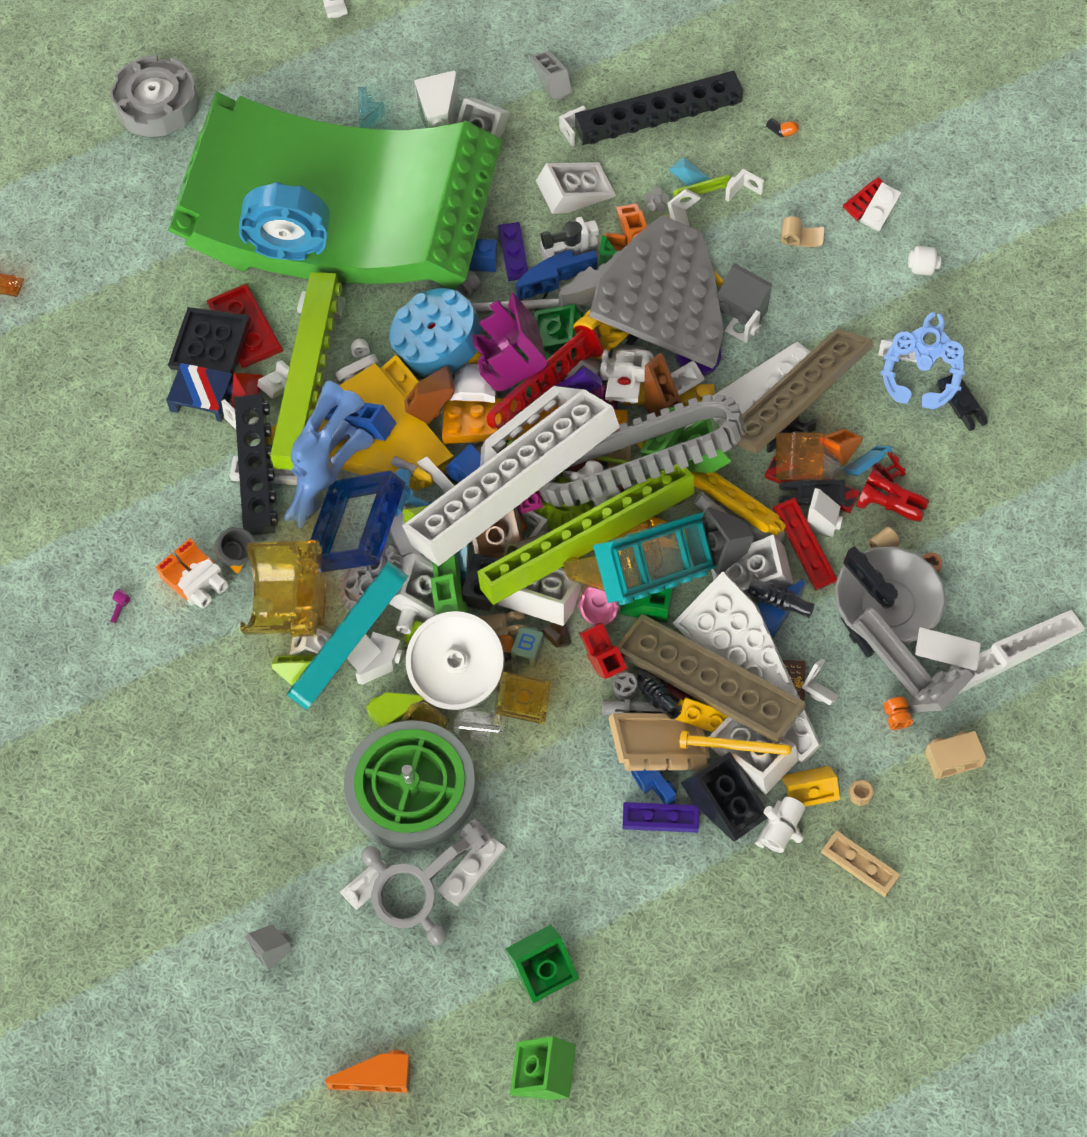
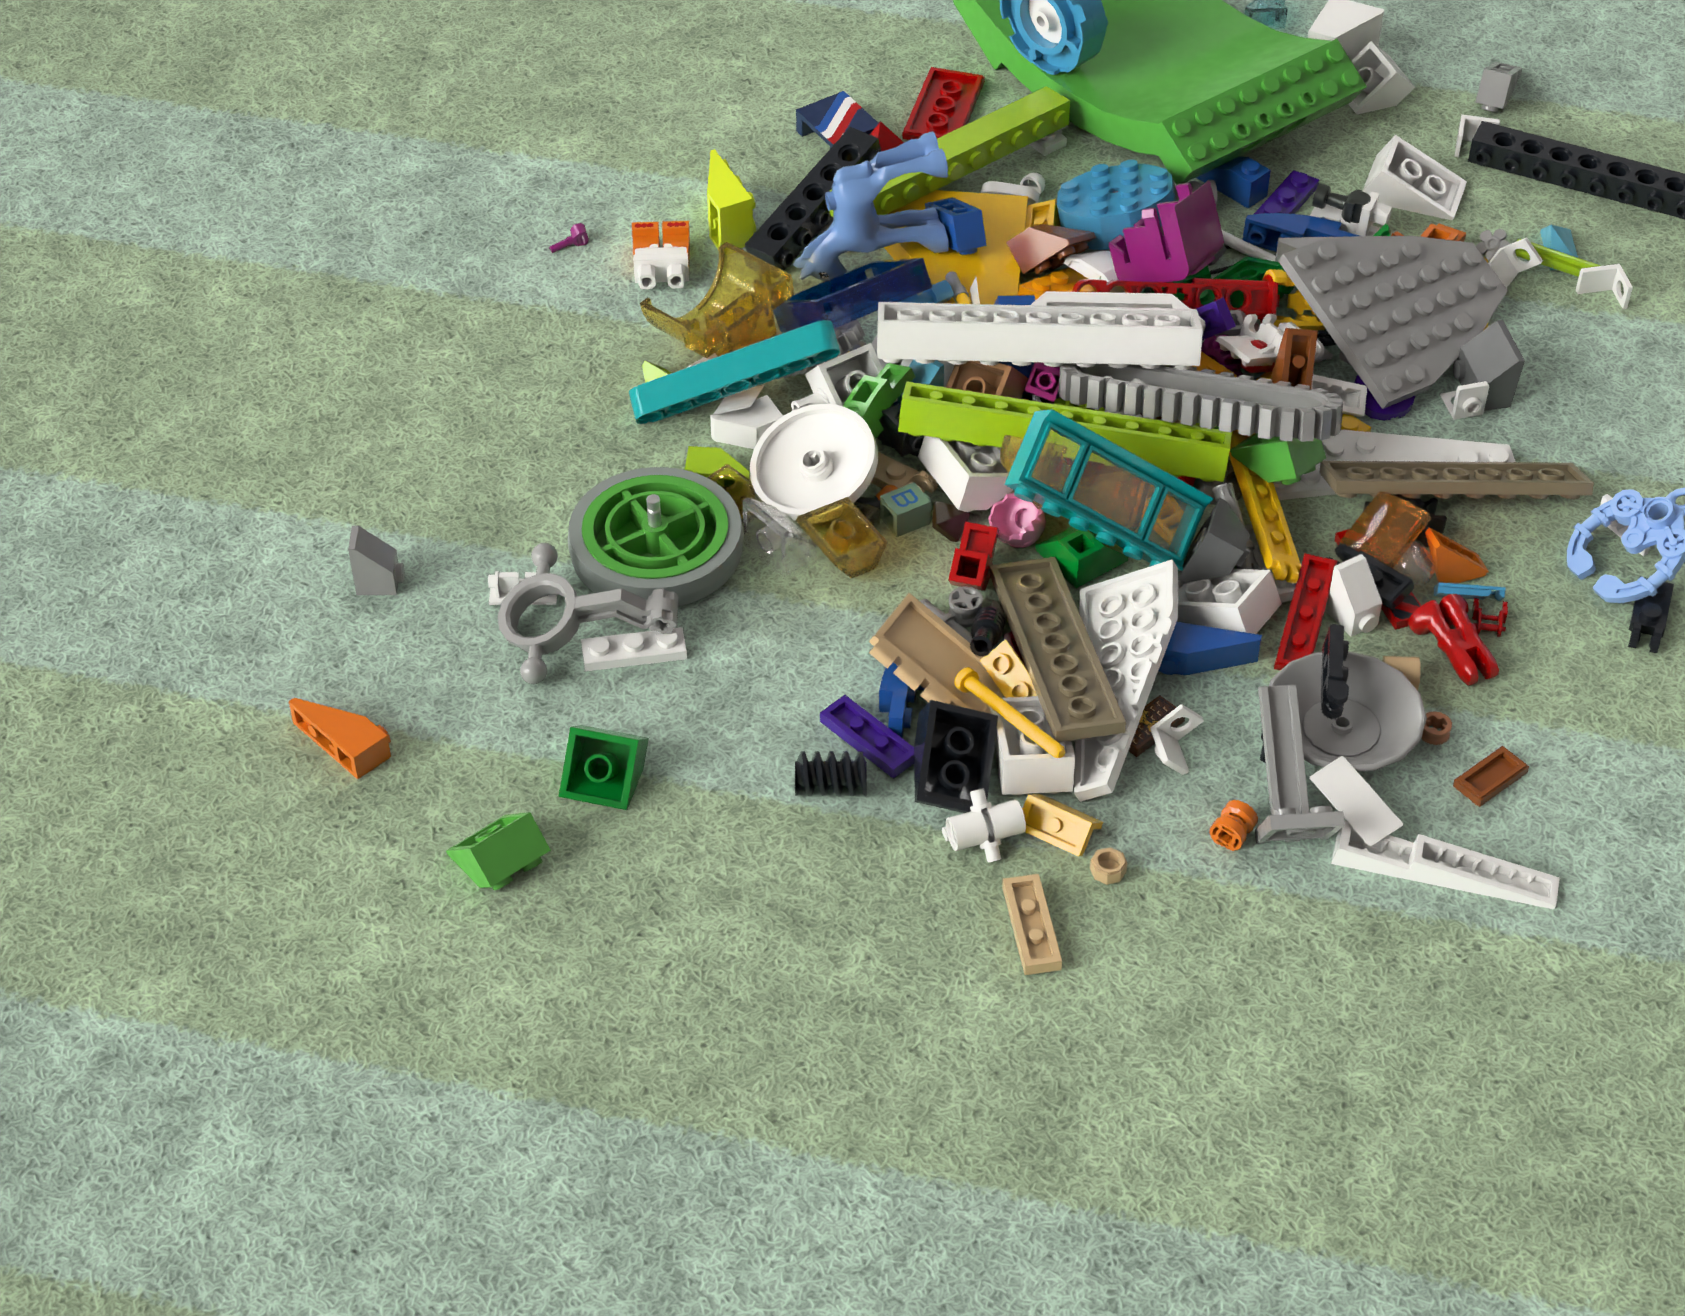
camera: 40 degrees right, 15 degrees down
(203, 509) = (728, 205): none -> neon yellow slope
(210, 340) = (897, 92): black plate -> none
(232, 547) = (707, 247): dark grey piece -> none
(668, 859) = (831, 773): none -> black piece
(779, 597) = (1213, 629): black hinge -> none
(794, 234) = (1621, 358): tan panel -> none
(955, 754) = (1254, 904): tan brick -> none
(983, 572) = (1490, 776): none -> dark orange tile

